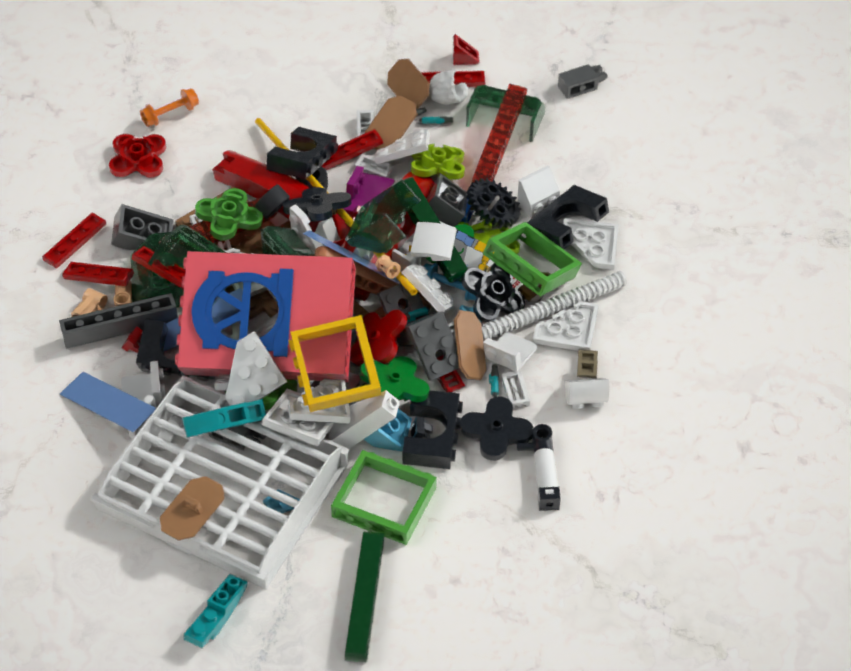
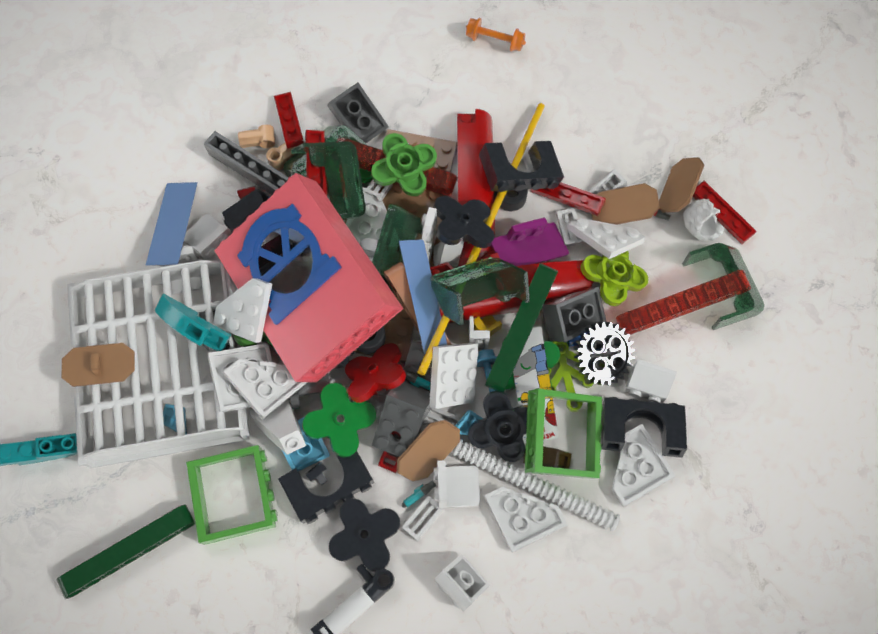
camera: 55 degrees right, 20 degrees up
(74, 240) = (314, 77): red tile -> none
(137, 155) = (430, 52): red plant -> none
(272, 201) = (441, 186): black tyre -> none
(342, 397) = (311, 389): yellow window -> none
(388, 266) = (429, 332): light nougat bush -> none
(433, 241) = (502, 342): white slope -> none
(436, 120) = (665, 235): teal piece -> none
(463, 52) = (761, 200): red slope -> none
(580, 80) = (821, 319): dark grey hinge -> none
(587, 364) = (493, 562): dark tan slope -> none

